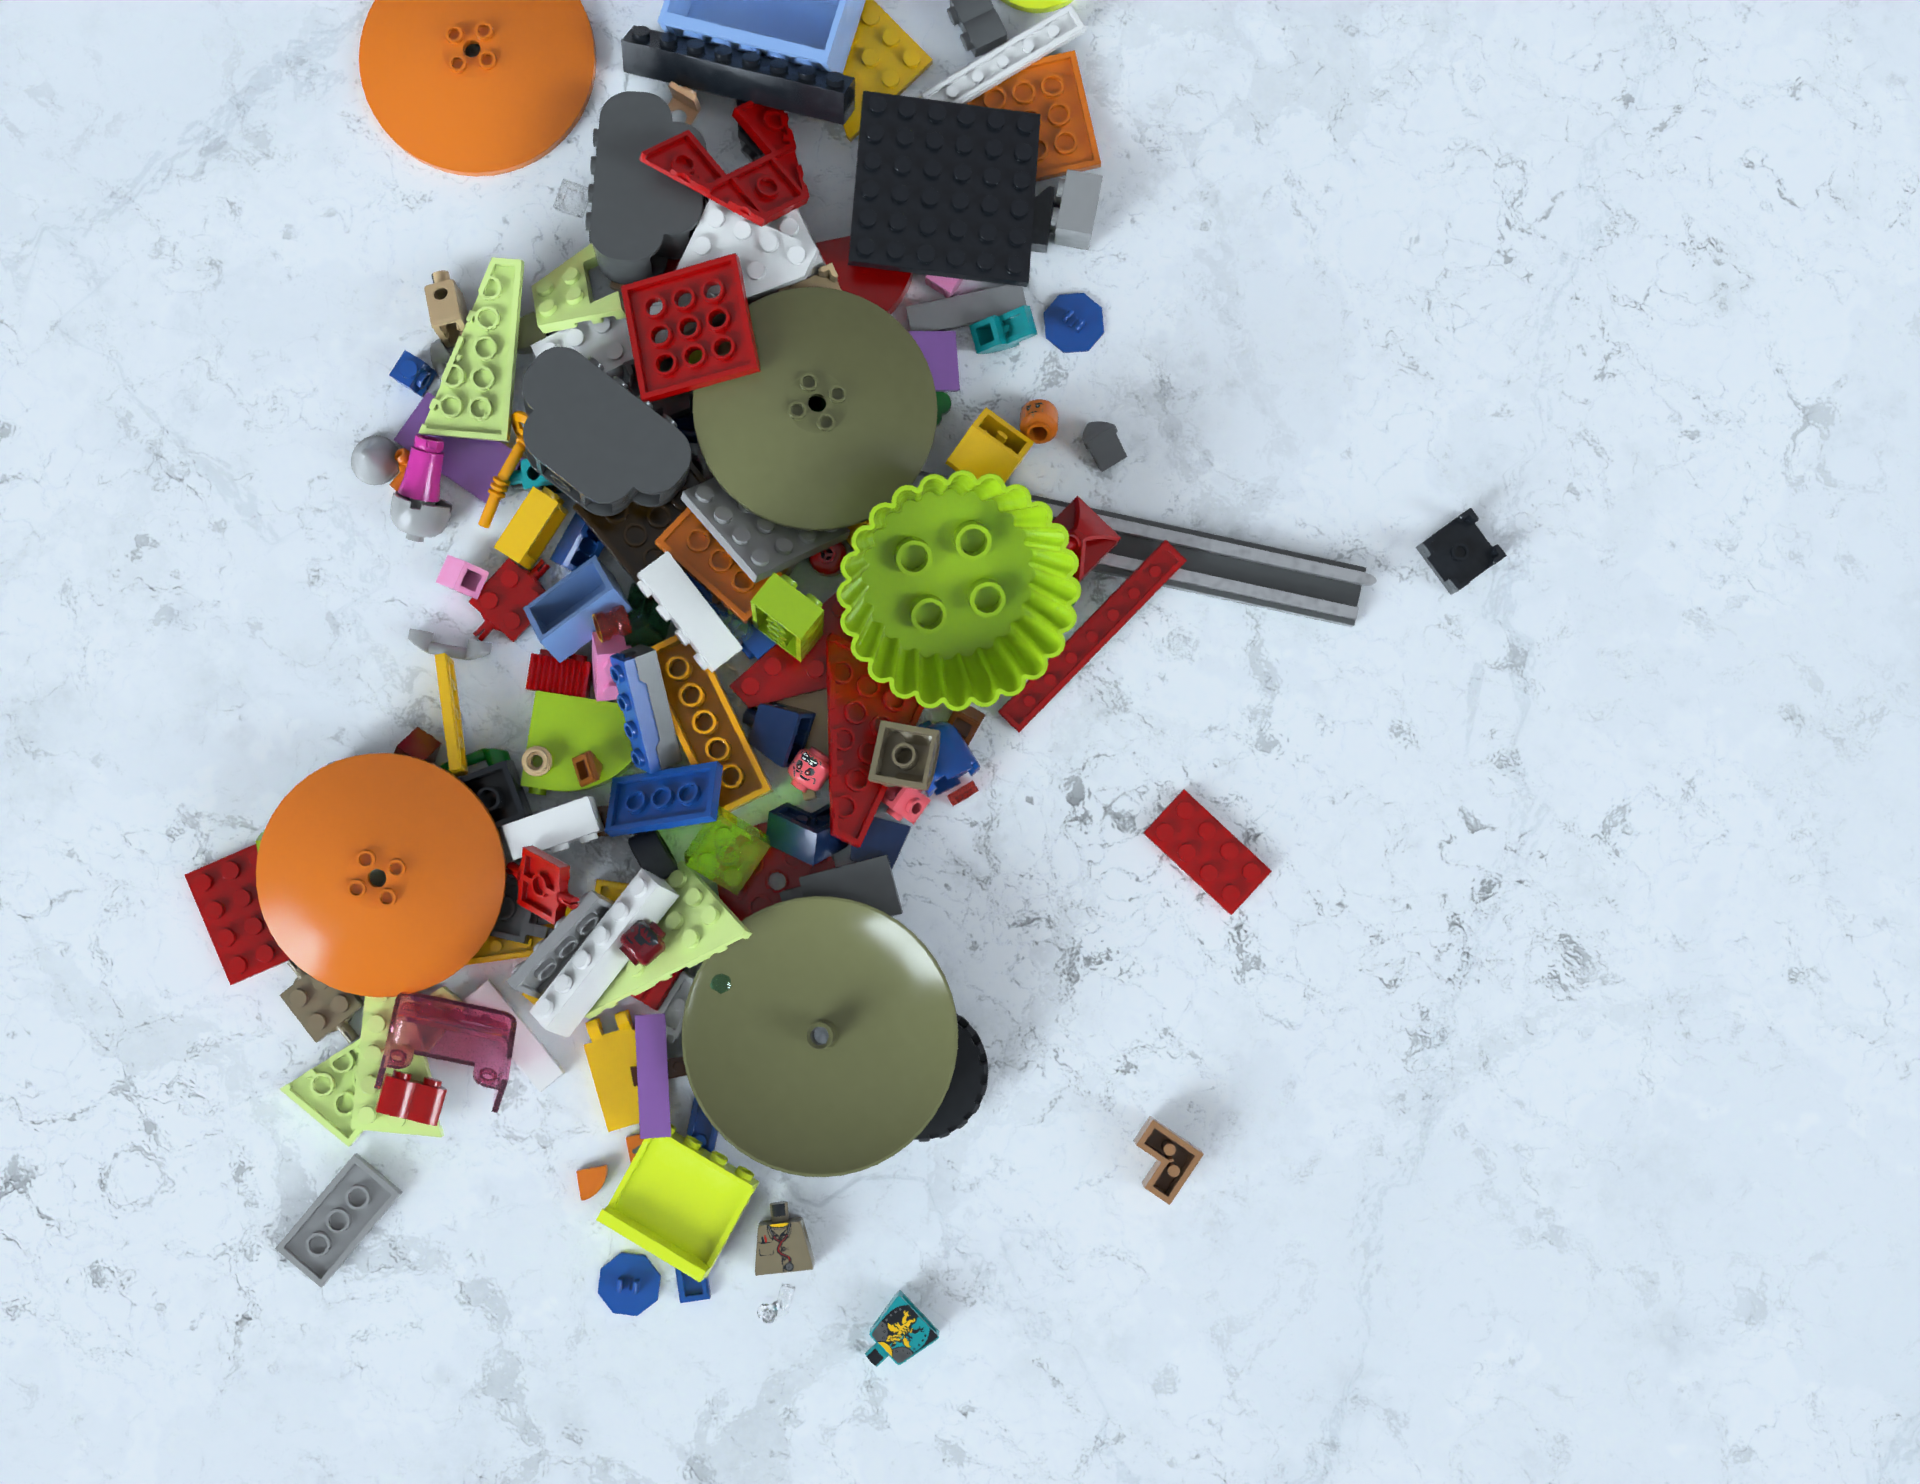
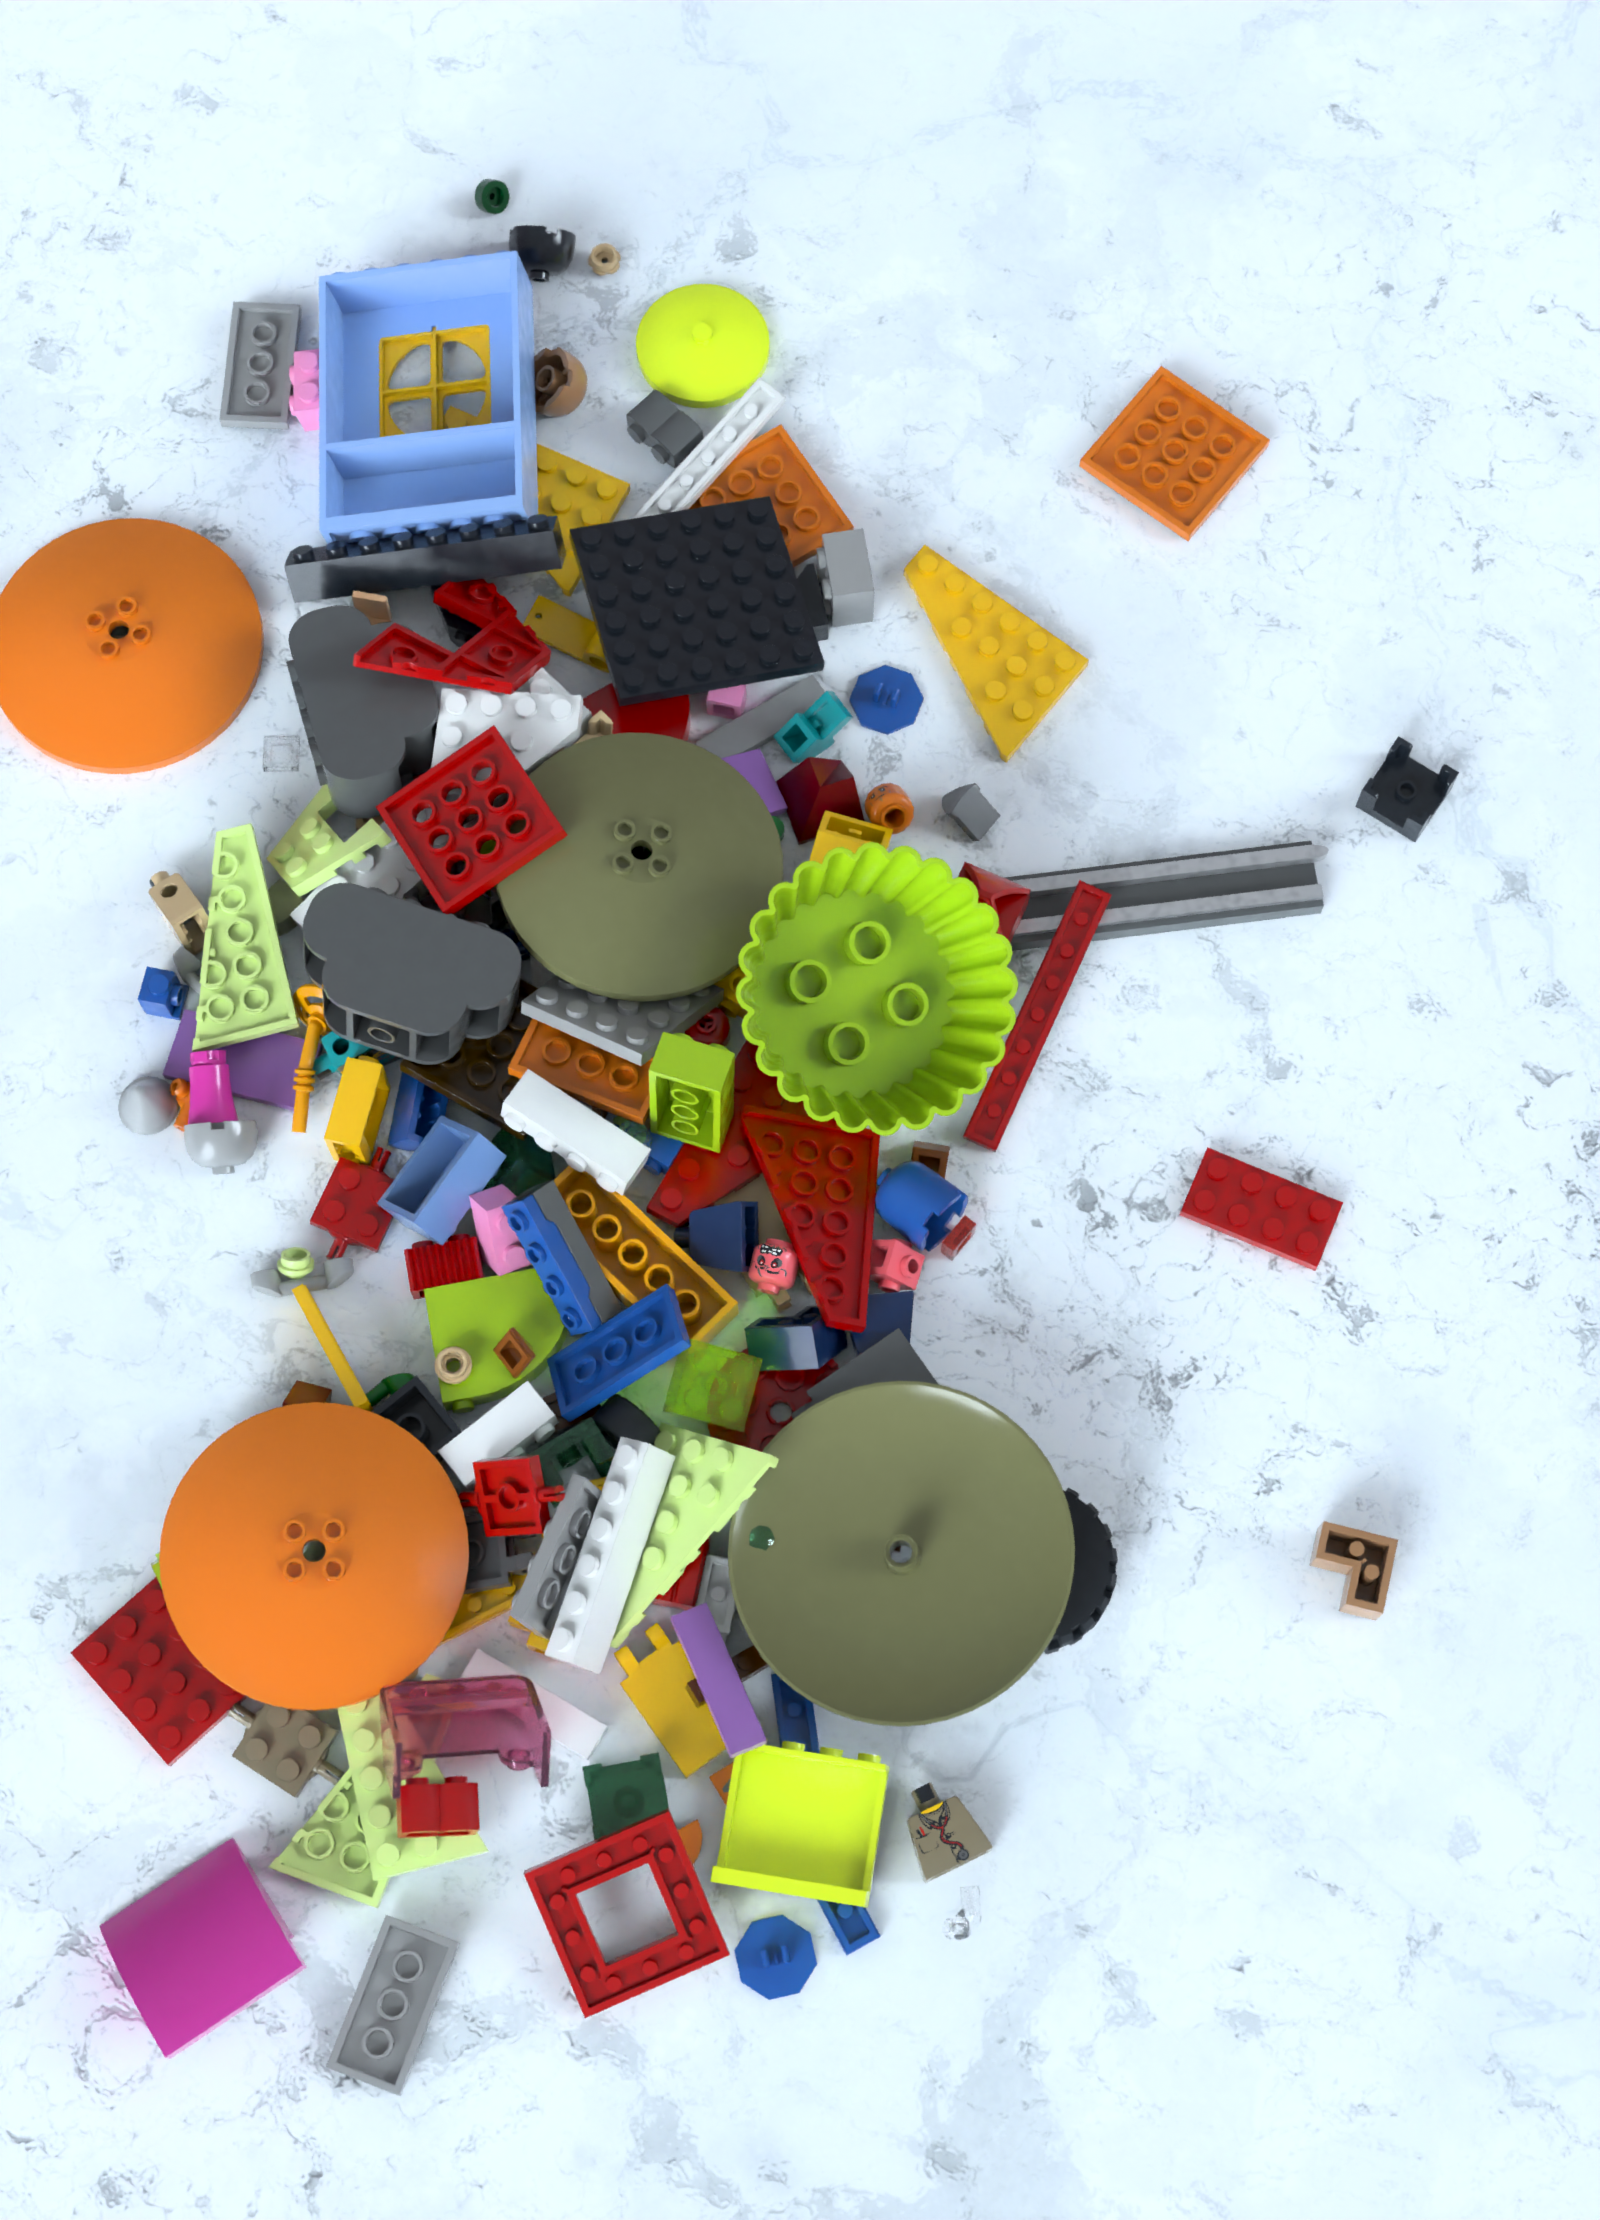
camera: 20 degrees left, 15 degrees down
(210, 1132) = (201, 1948): none -> dark pink slope
(447, 630) = (295, 1263): none -> yellowish green plate
(462, 577) = (294, 1194): bright pink brick -> none
(558, 1177) = (604, 1983): none -> red plate
(559, 1134) = (625, 1793): none -> clear green panel
(582, 872) = (570, 1449): none -> clear green panel
(611, 623) = (490, 1174): clear red wheel -> none
(643, 943) = (653, 1521): dark red head -> none
(832, 170) = (566, 632): none -> yellow door
(900, 1332) = (1124, 1890): torso -> none
(905, 756) = (879, 1204): dark tan slope -> none
(988, 384) = (818, 787): none -> dark red slope
(1179, 315) = (1003, 657): none -> yellow wing
(1390, 189) = (1174, 453): none -> orange plate

